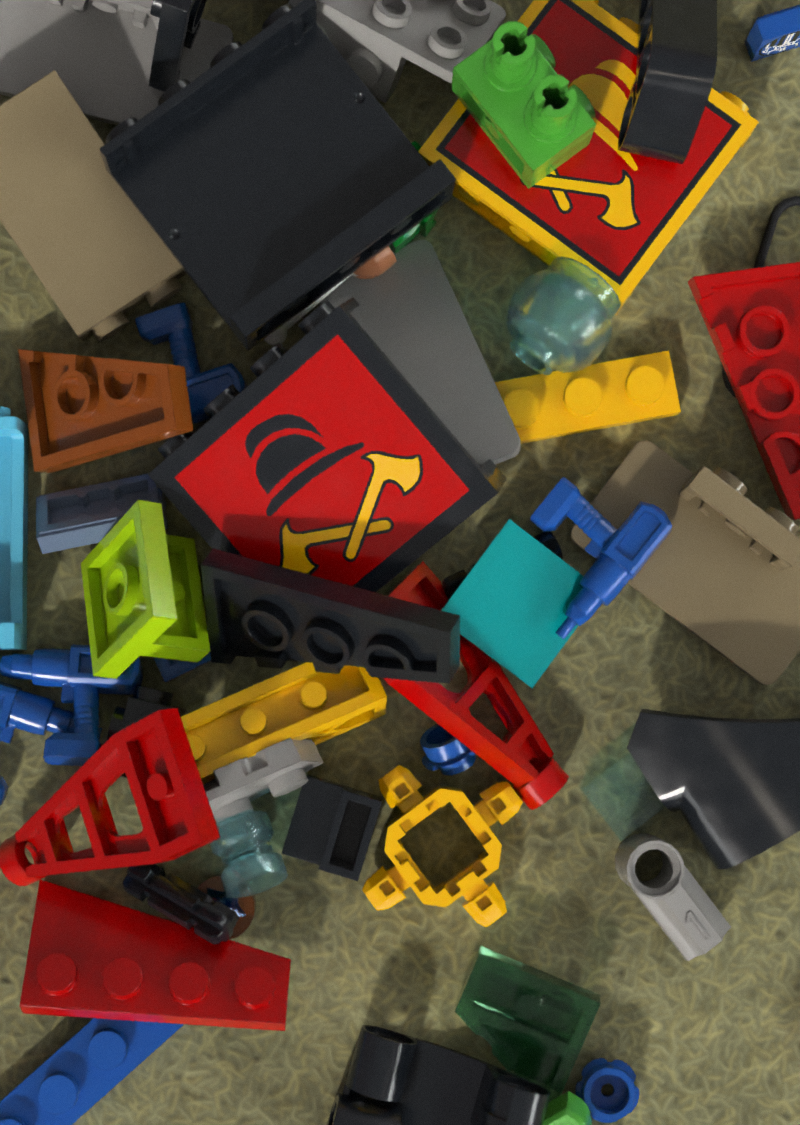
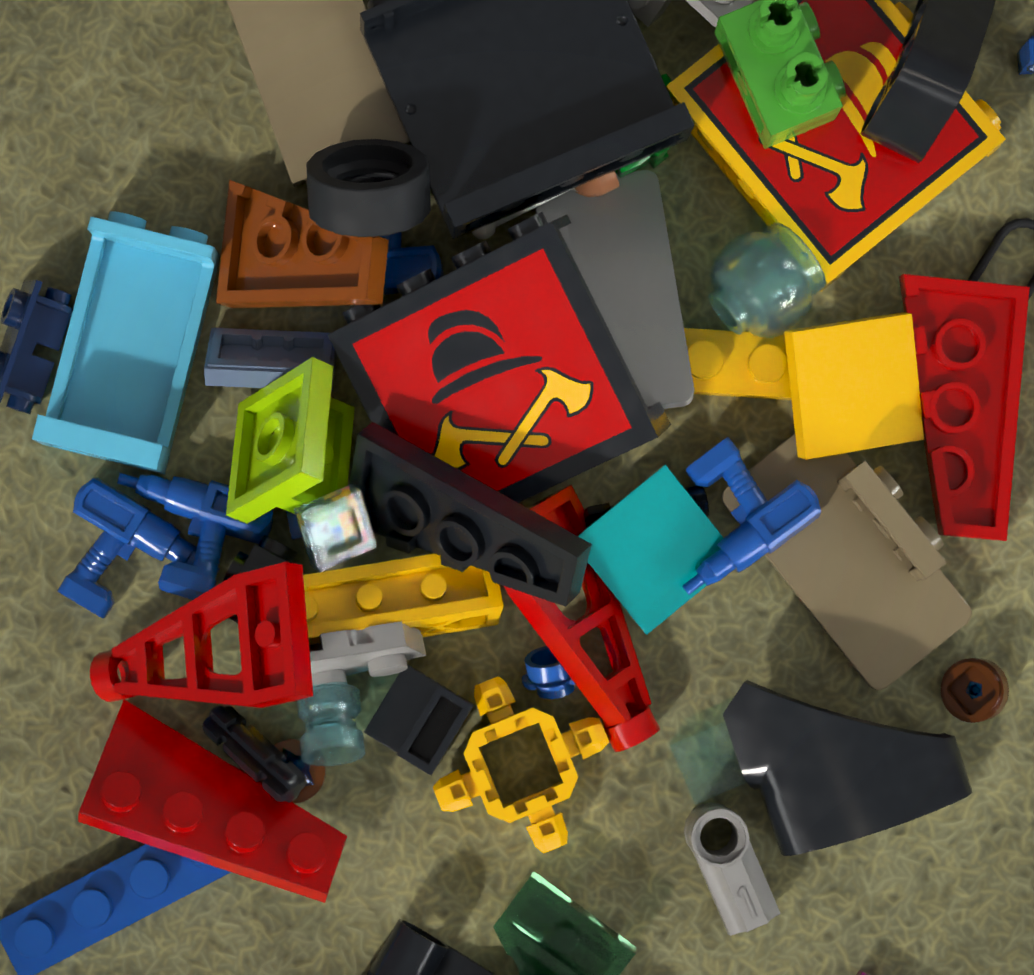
camera: 15 degrees right, 0 degrees up
(151, 320) = (368, 187): none -> black tyre
(203, 661) = (335, 528): none -> clear light blue tile
(672, 396) = (854, 385): none -> yellow tile

